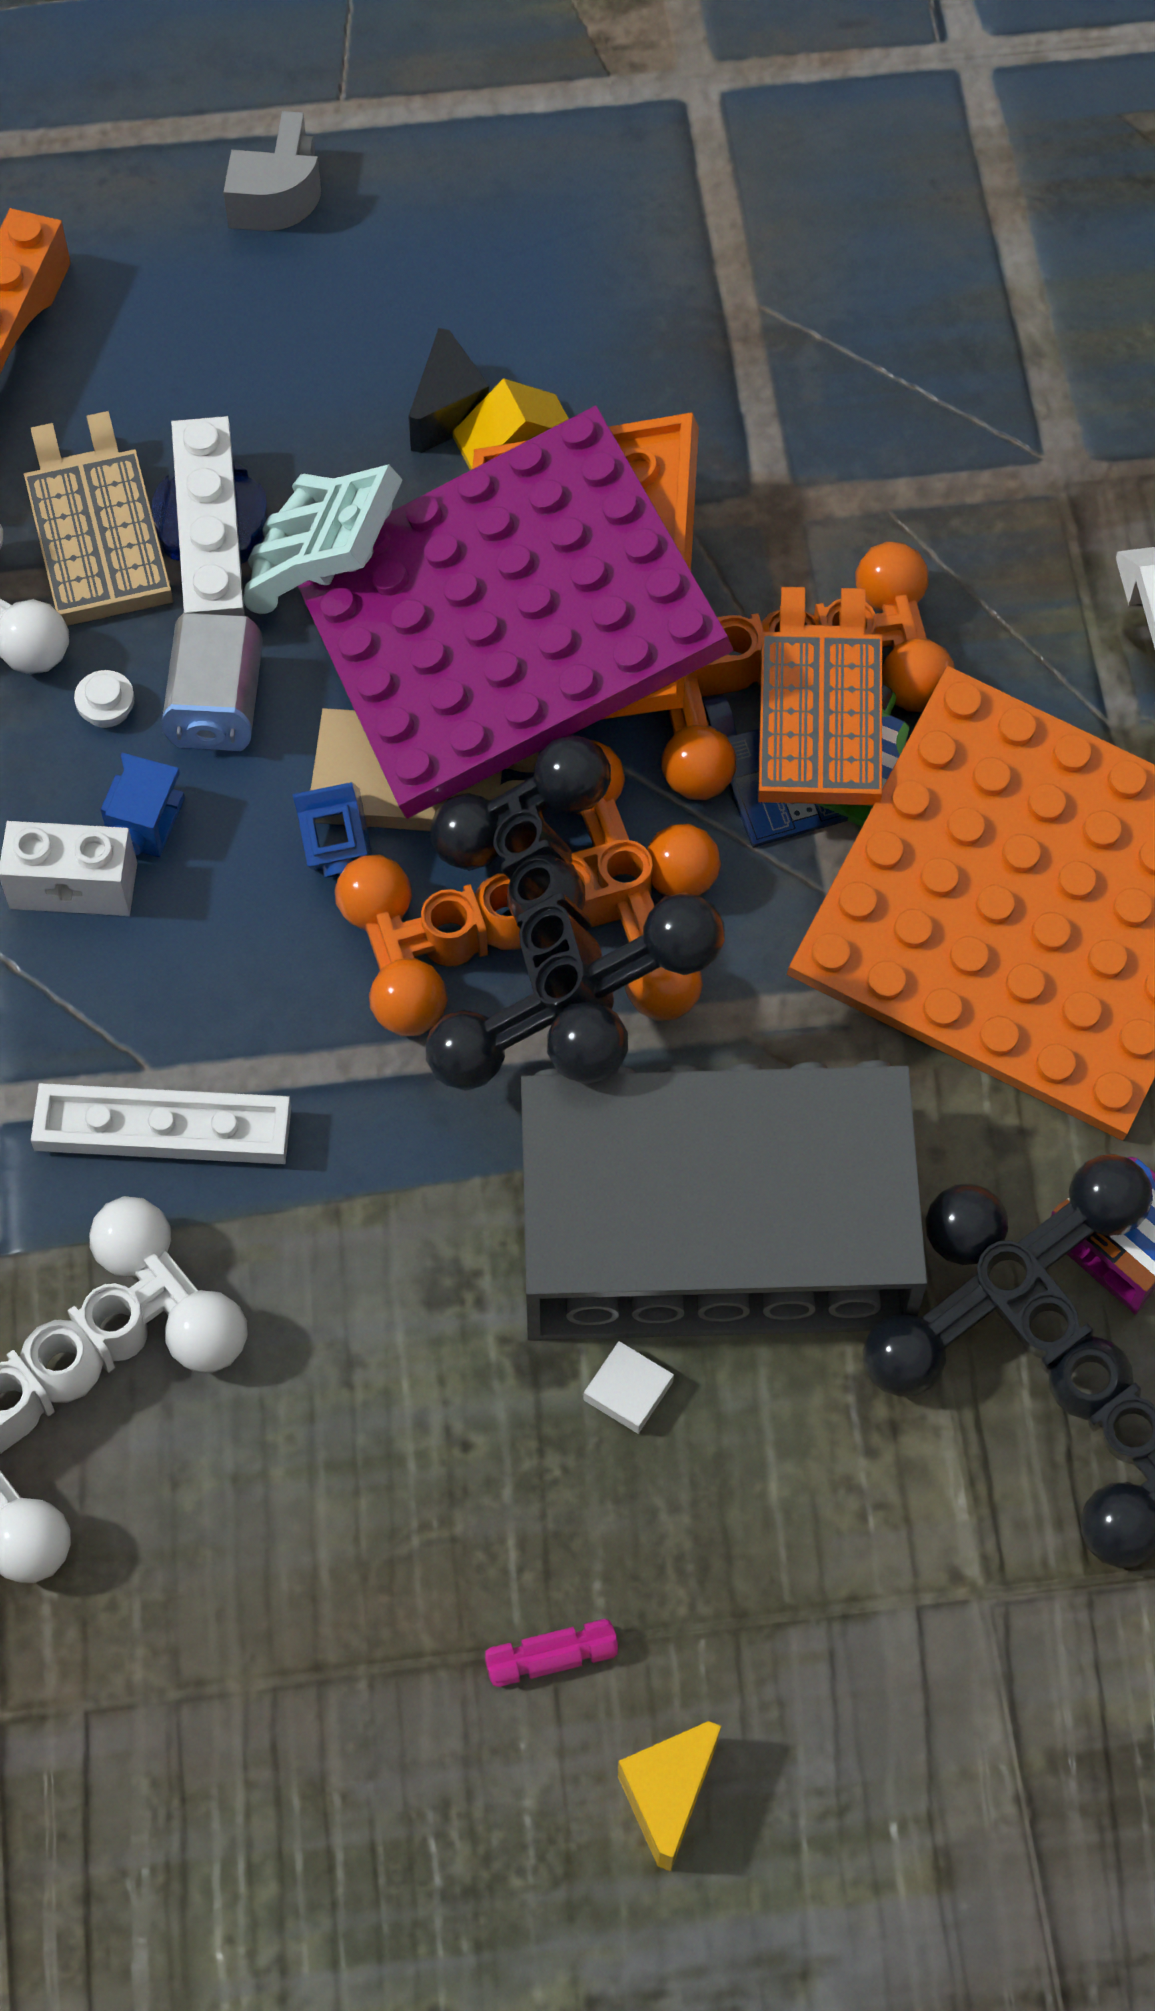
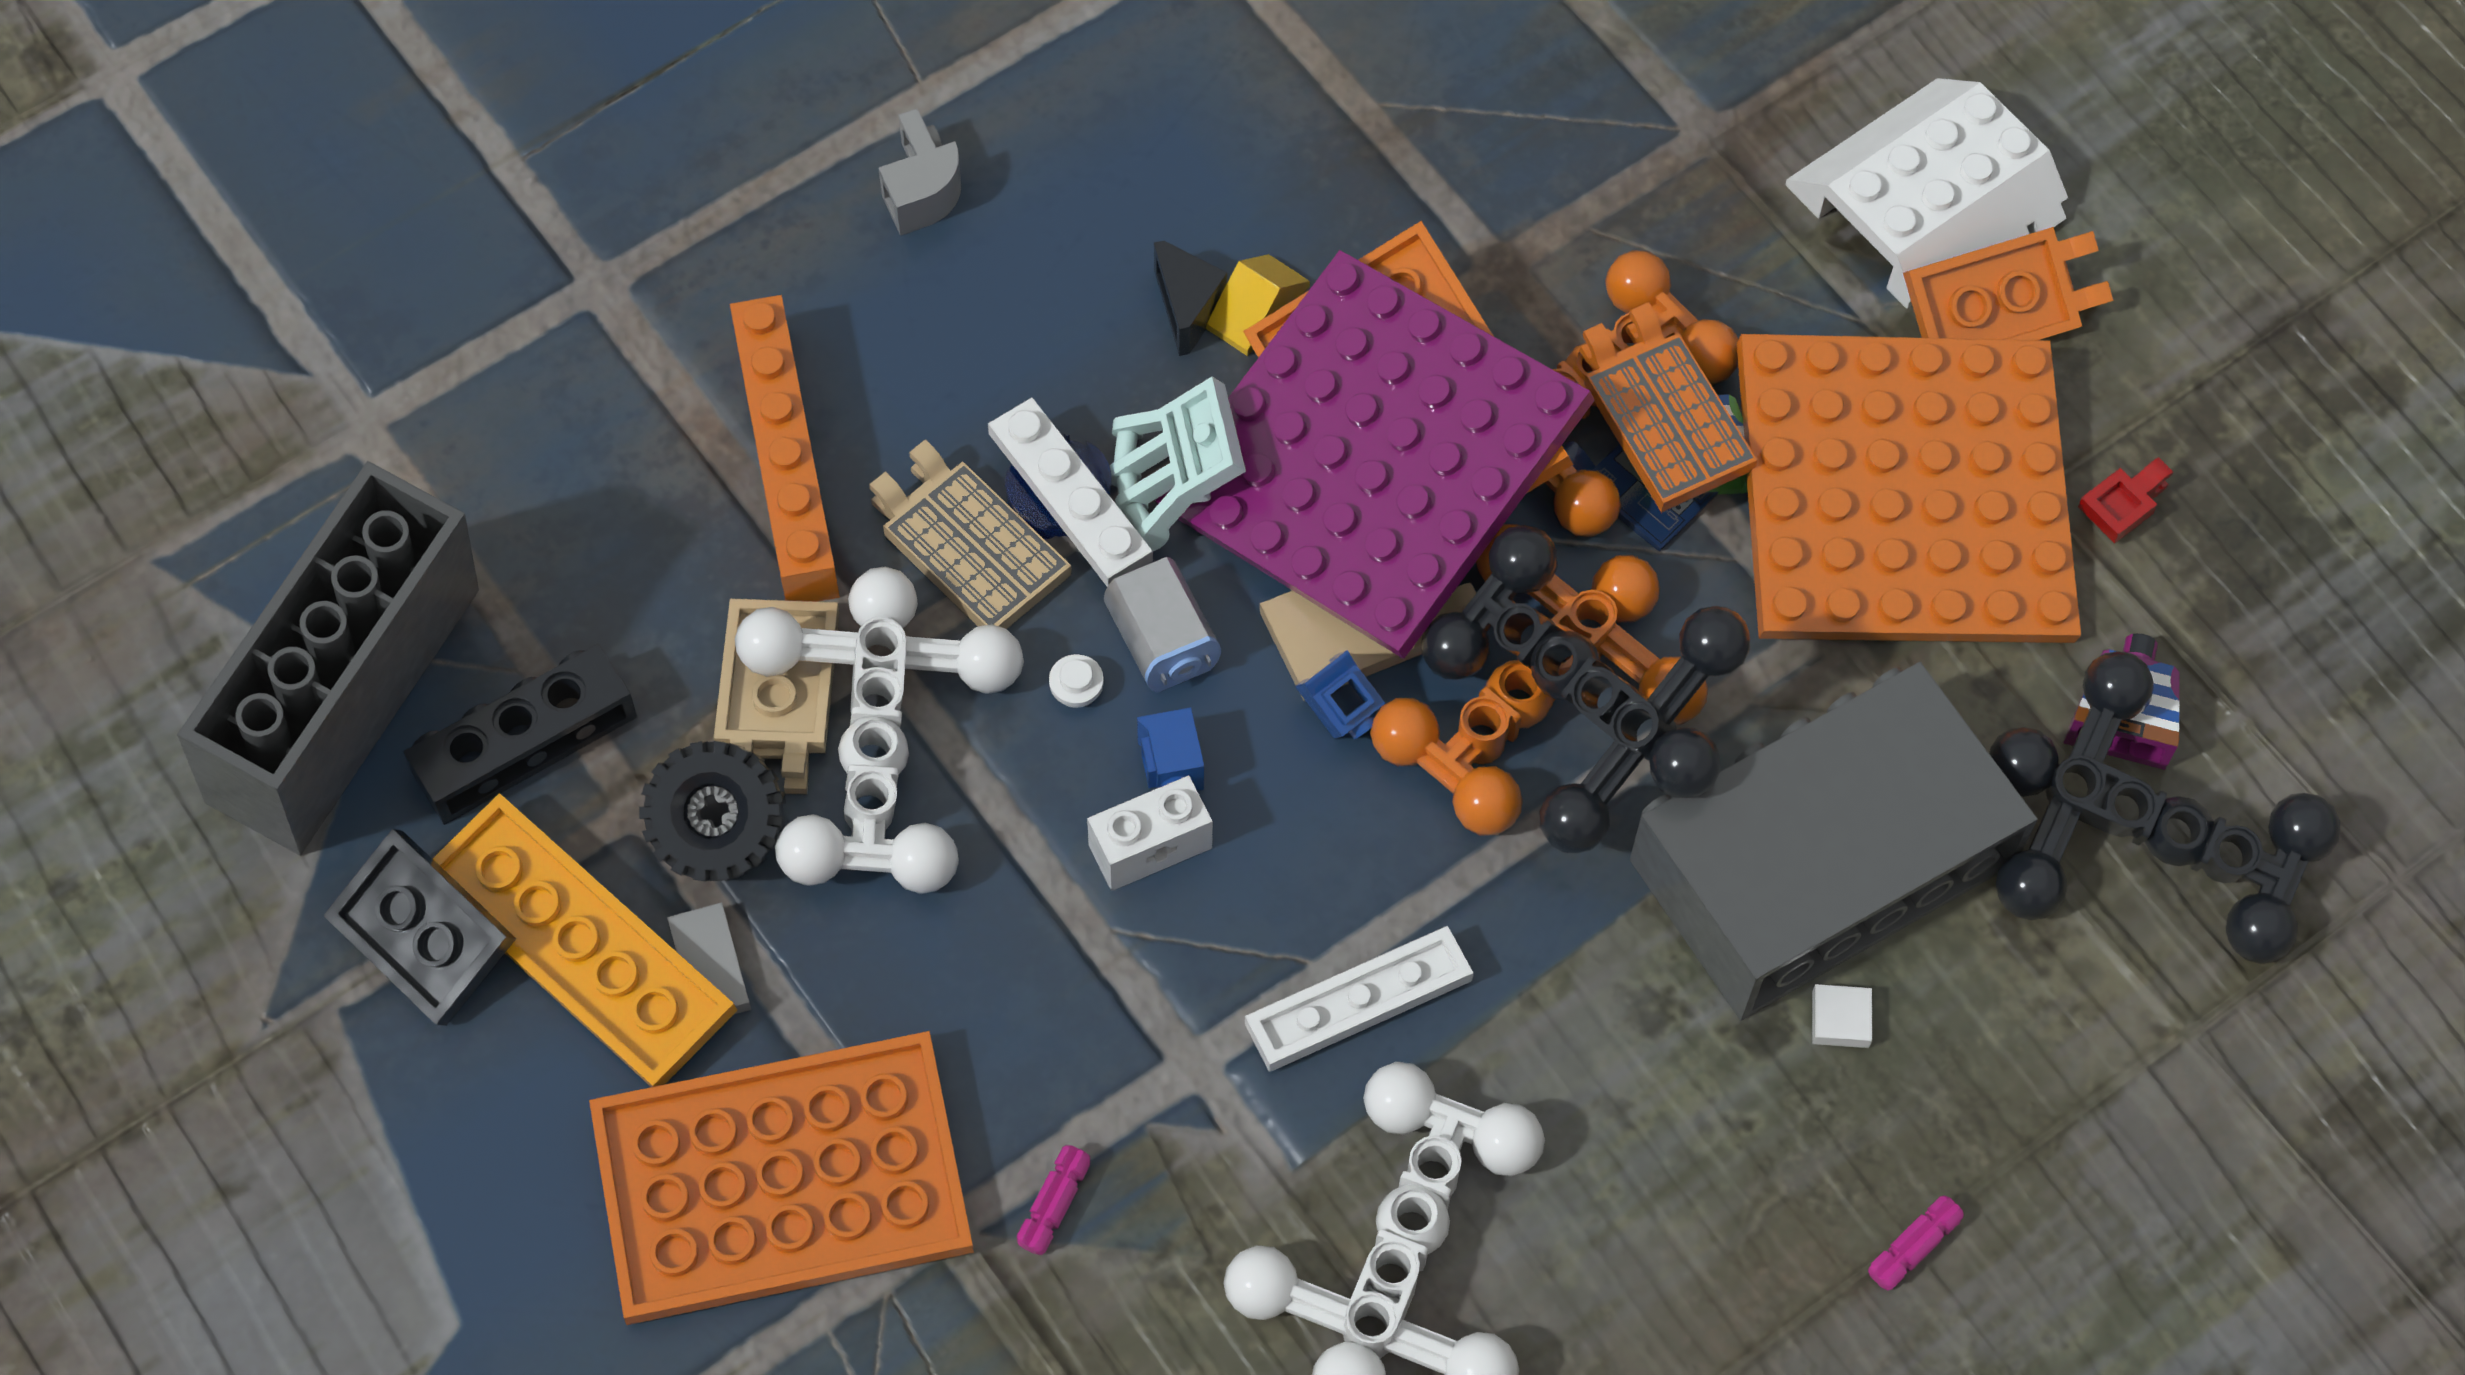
camera: 30 degrees left, 0 degrees up
(665, 1786) = (2068, 1296): yellow slope -> none

